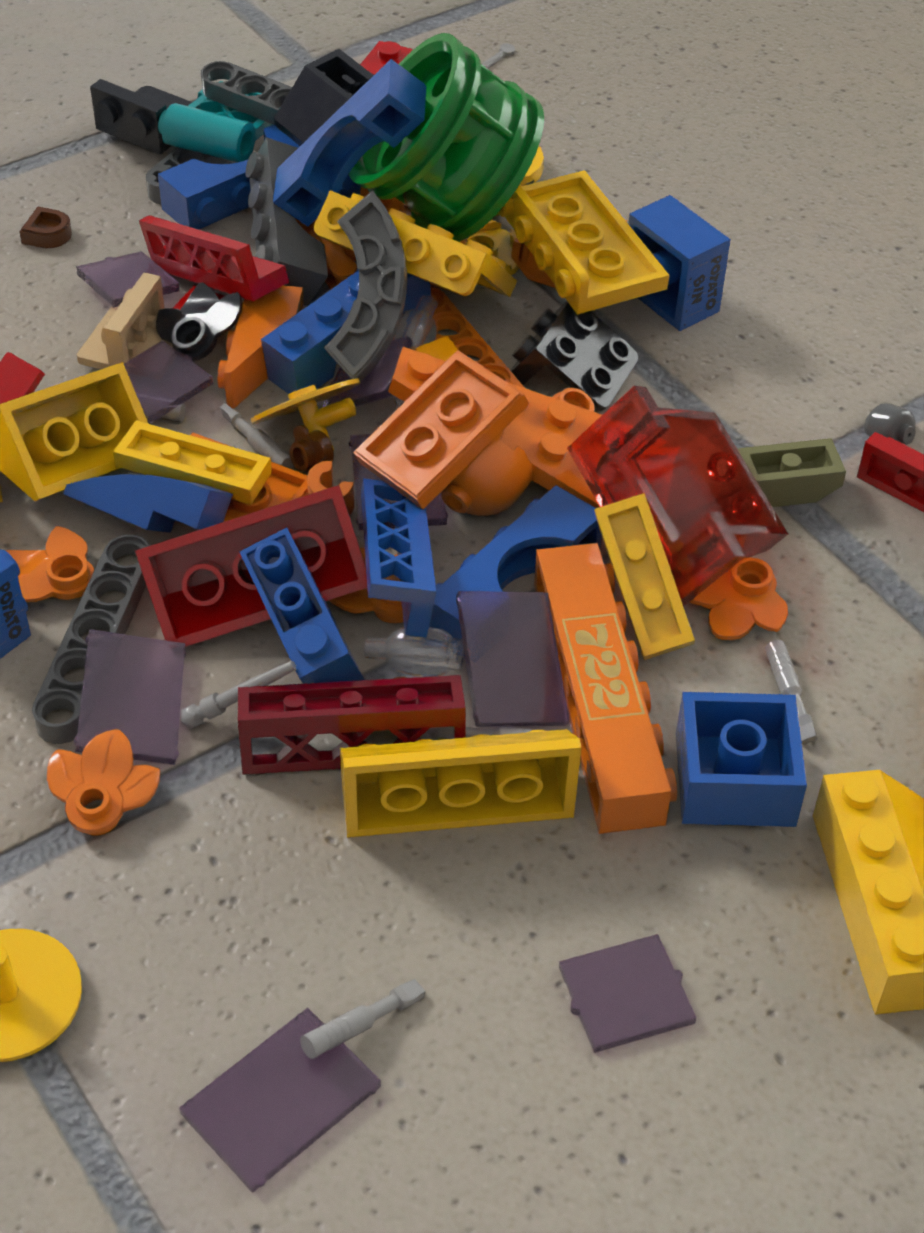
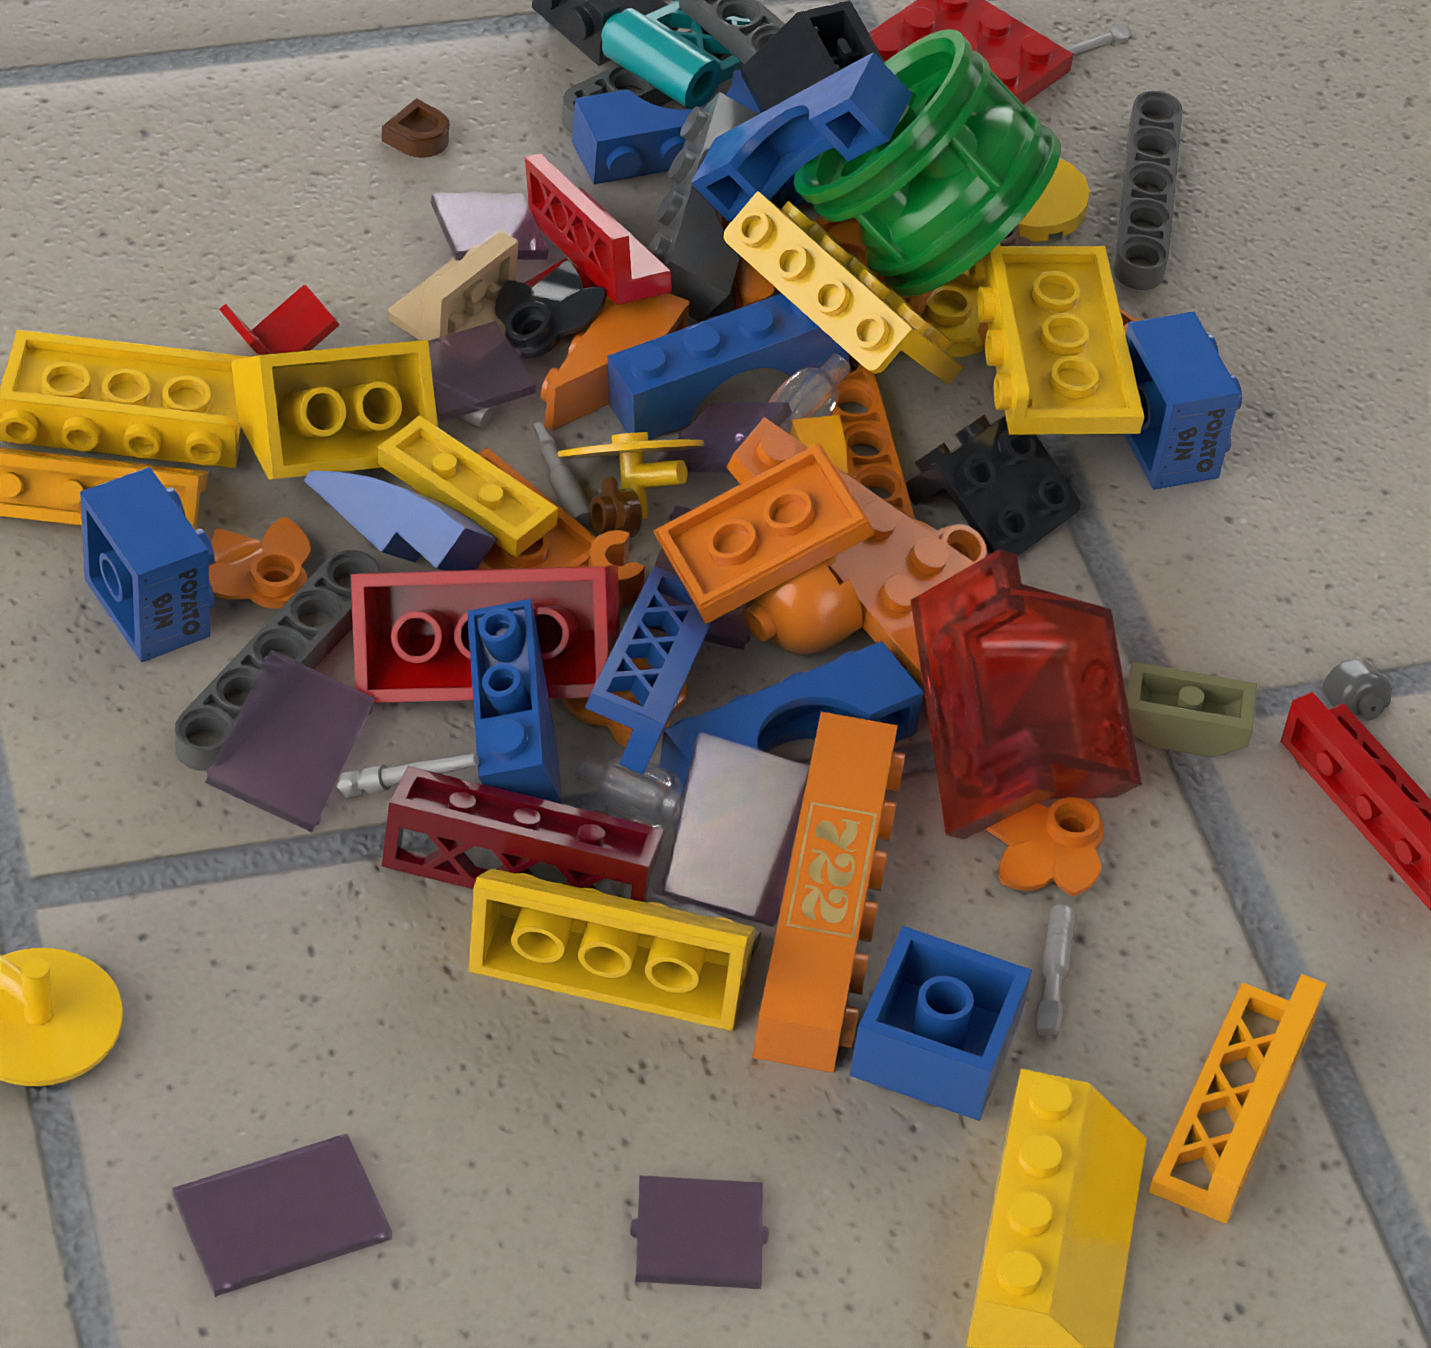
camera: 15 degrees right, 0 degrees up
(101, 773) = (222, 816): orange plate -> none
(359, 1020) = (396, 1162): light grey piece -> none
(381, 288) = (773, 335): dark grey tile -> none
(571, 118) = (1144, 205): none -> dark grey beam
(644, 576) = (933, 782): yellow plate -> none

